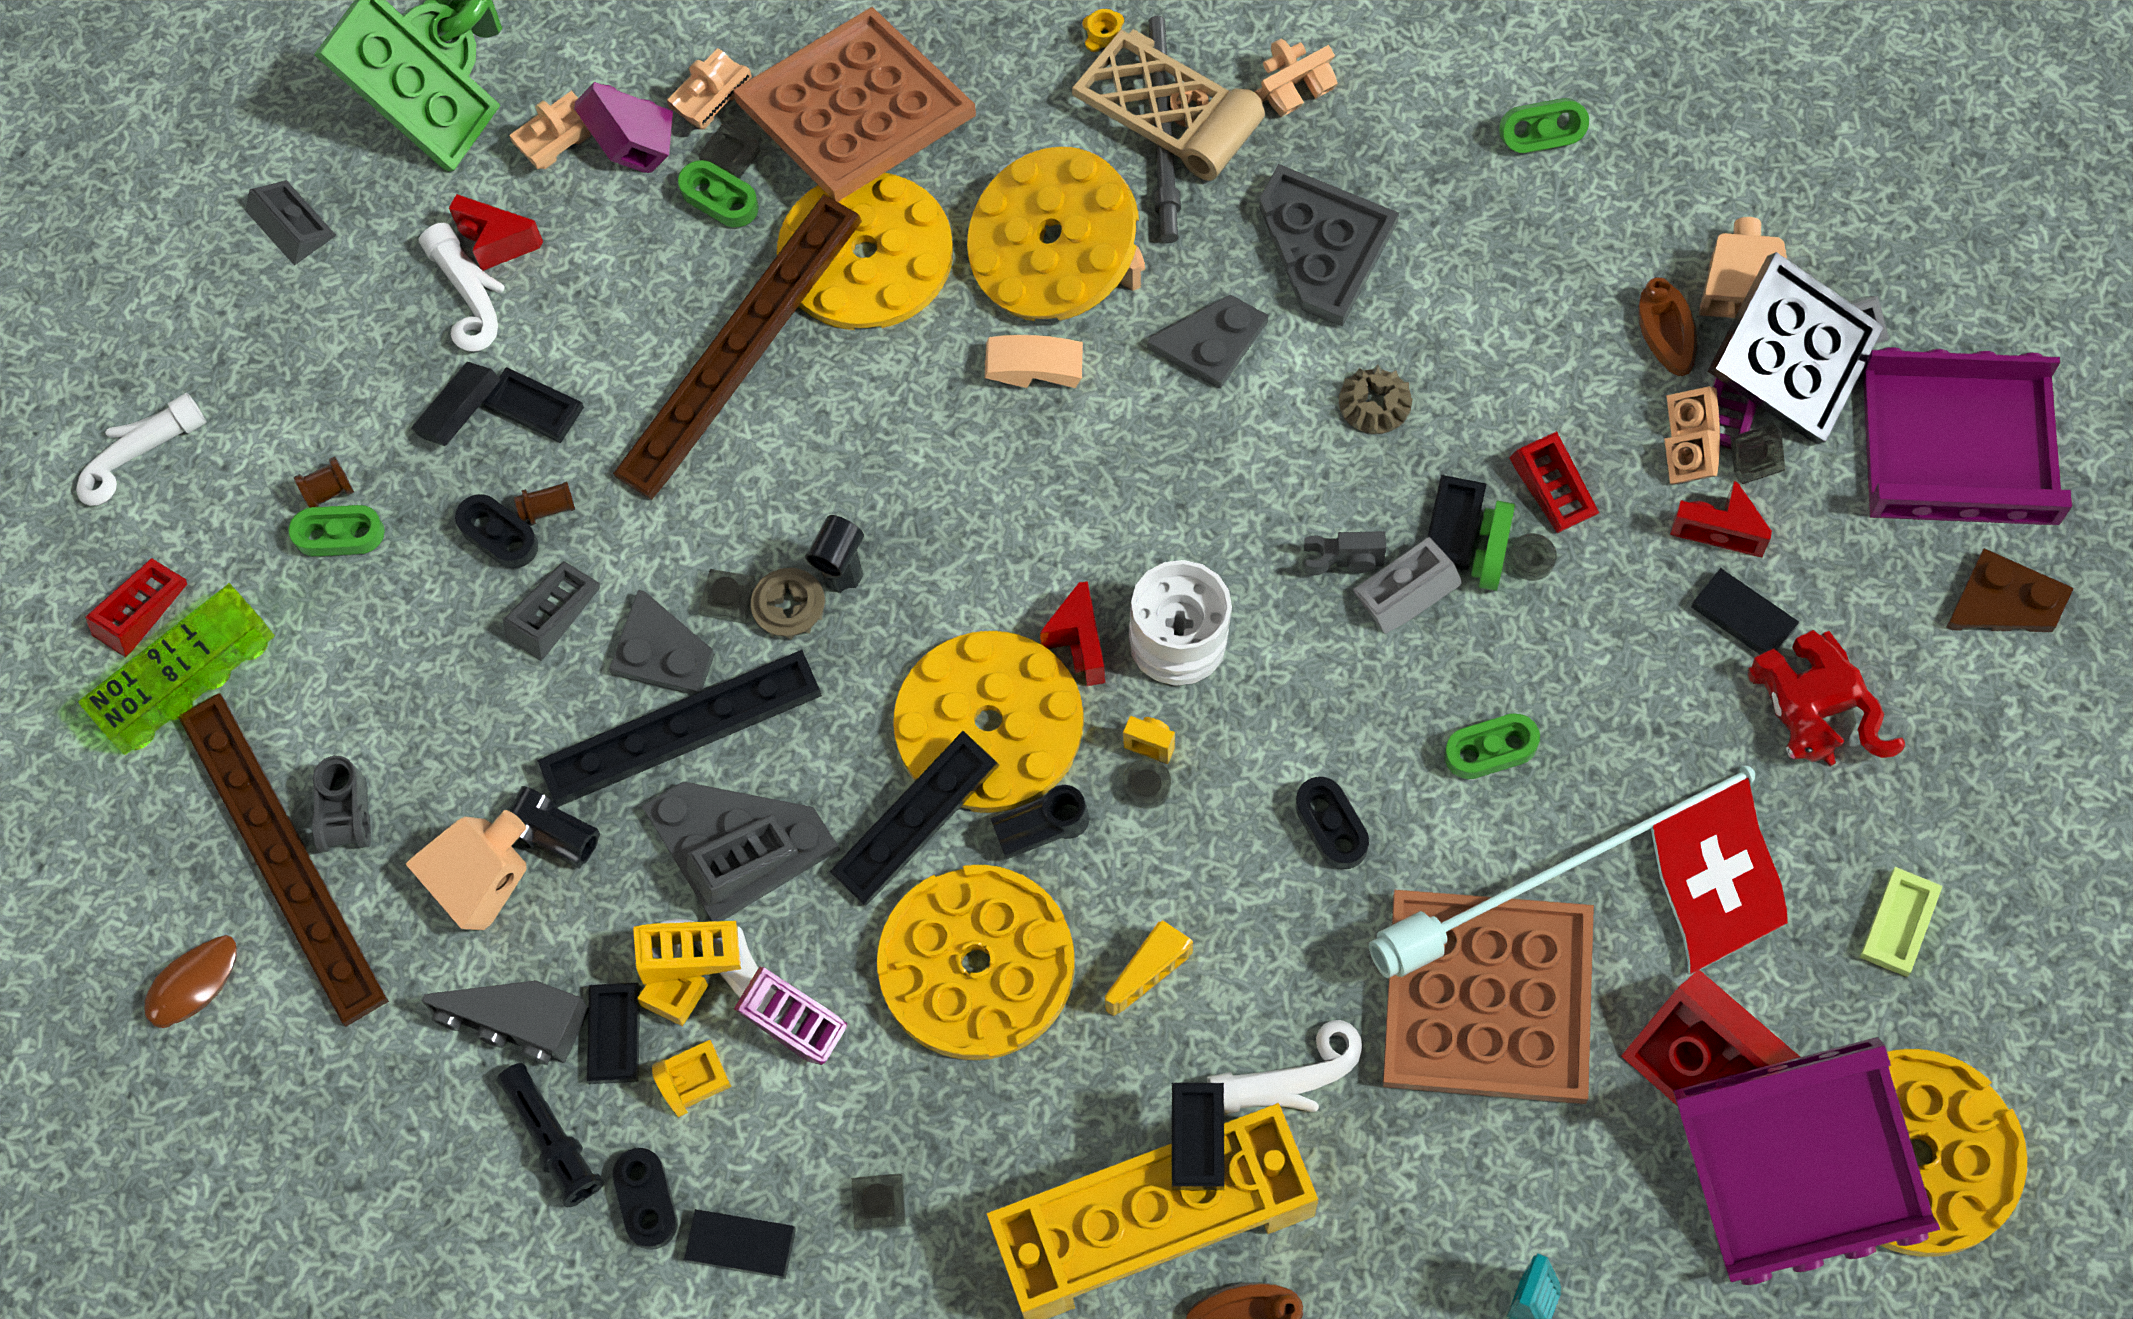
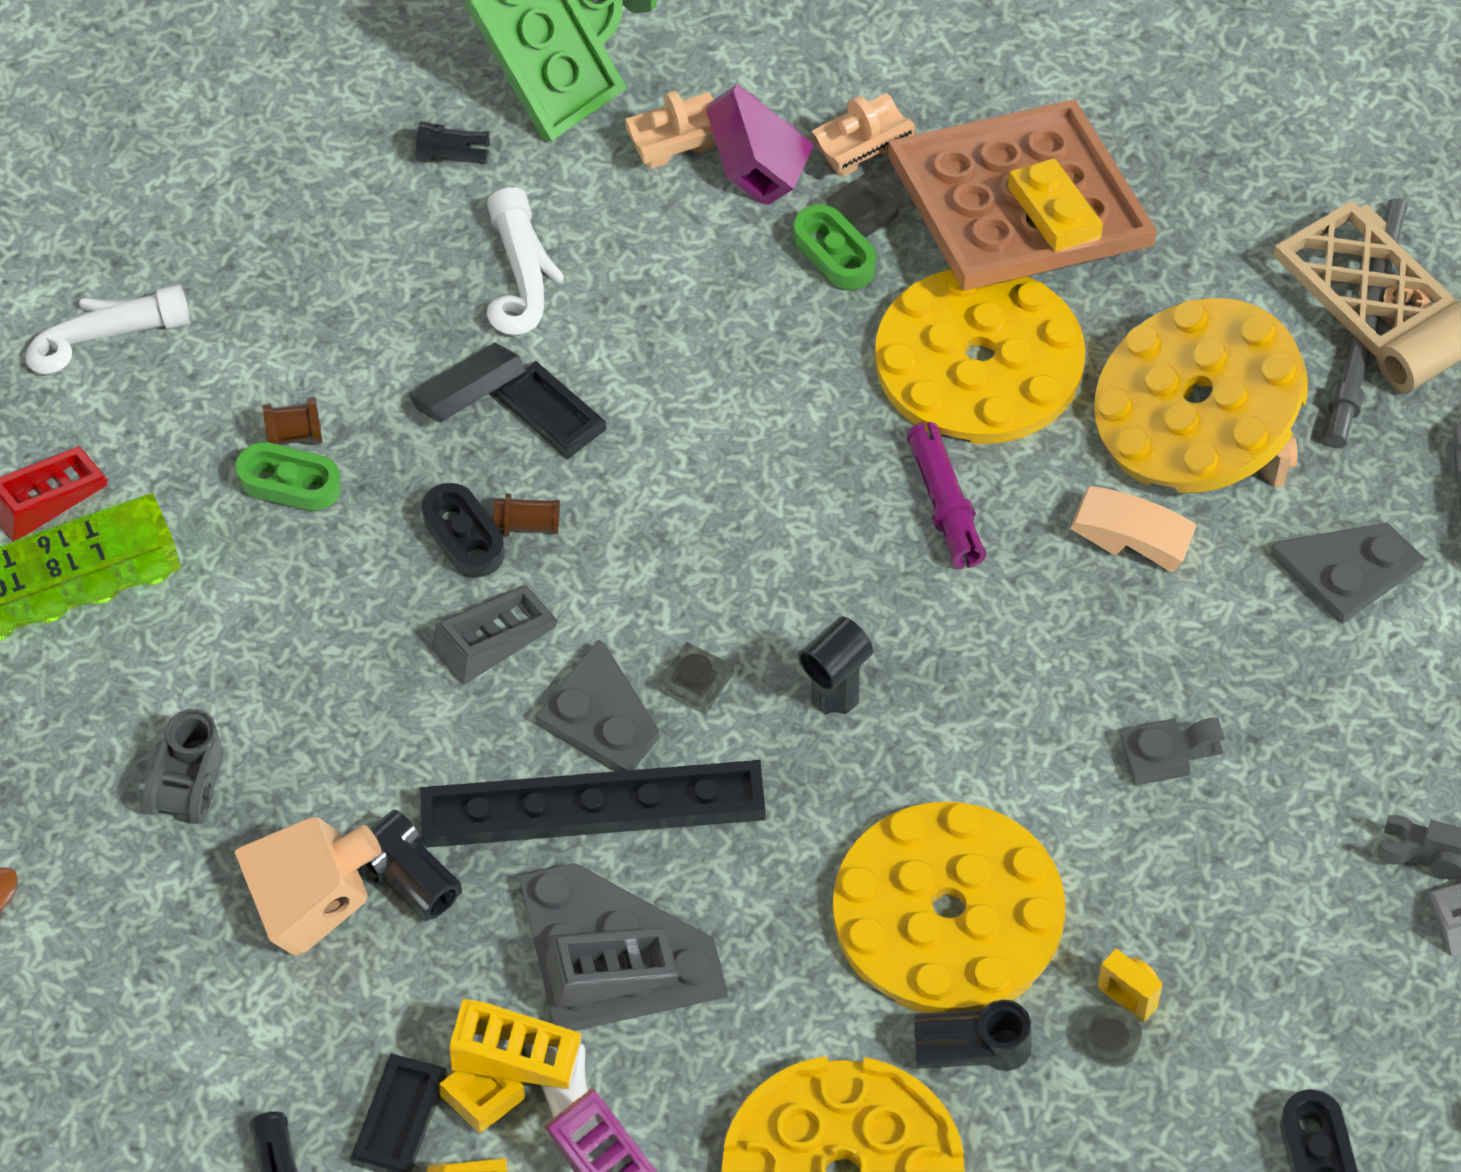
camera: 15 degrees right, 10 degrees down
(283, 860) = (103, 812): reddish brown tile -> none
(288, 220) = (354, 141): dark grey slope -> none
(359, 201) = (438, 143): none -> black pin
(497, 232) = (574, 215): red slope -> none
(521, 1013) = (302, 1057): dark grey slope -> none
(737, 347) = (800, 413): reddish brown tile -> none
(772, 590) = (746, 689): dark tan gear -> none
(886, 107) = (1055, 205): none -> yellow plate
(886, 392) = (951, 511): none -> magenta pin
(914, 818) = (826, 986): black tile -> none
(1076, 626) = (1084, 833): red slope -> none
(1101, 20) = (1330, 186): yellow plate -> none
(1113, 539) = (1162, 752): none -> dark grey plate
(1186, 599) = (1213, 835): white wheel -> none

